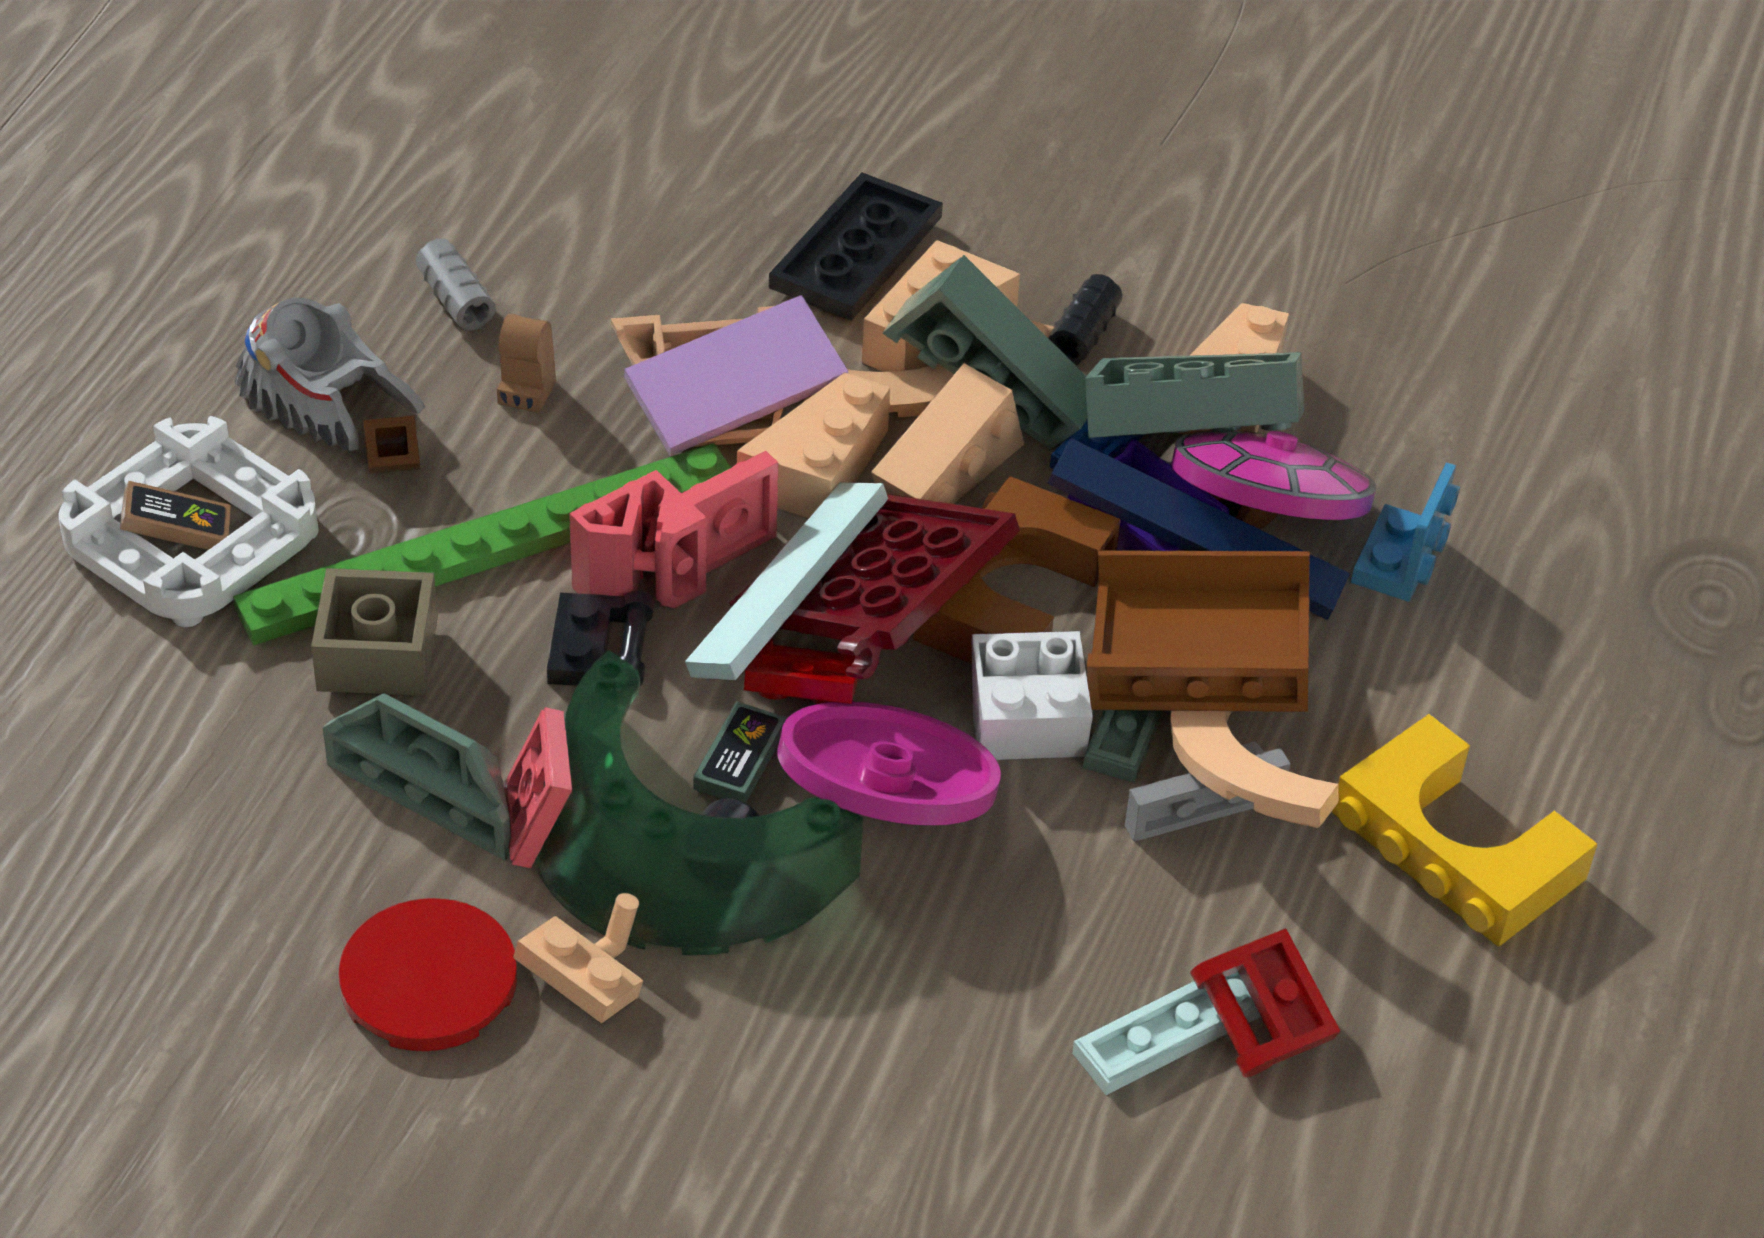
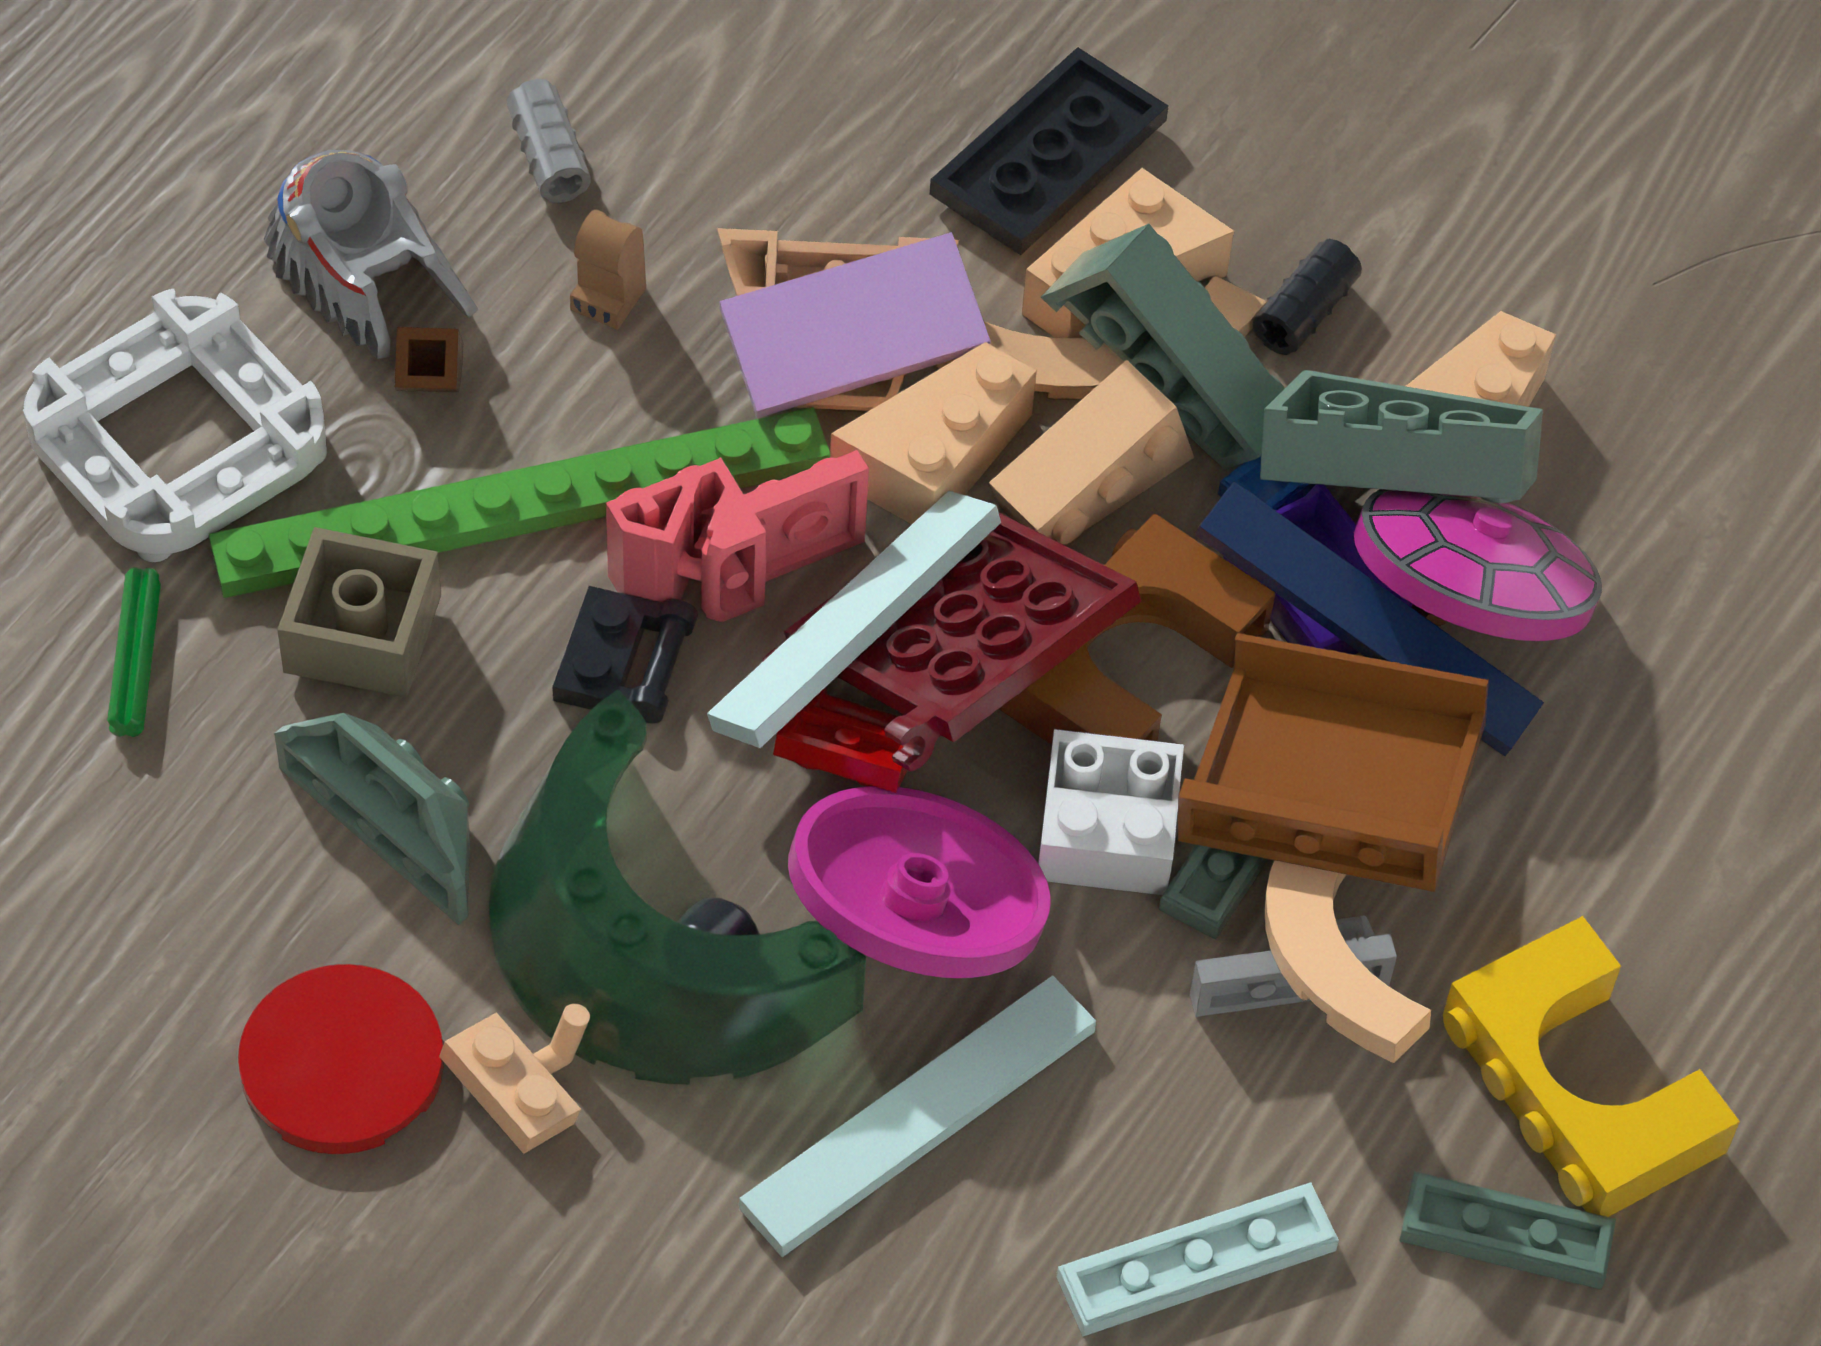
camera: 10 degrees right, 10 degrees up
(174, 516) = (159, 418): tile -> none
(186, 692) = (134, 652): none -> green axle
(529, 805) = (504, 850): coral piece -> none
(739, 753) = (755, 831): tile -> none
(924, 948) = (916, 1116): none -> light aqua tile
(1282, 994) = (1311, 1251): red plate -> none
(1403, 542) = (1621, 670): dark azure bracket -> none
(1431, 960) = (1508, 1230): none -> sand green tile

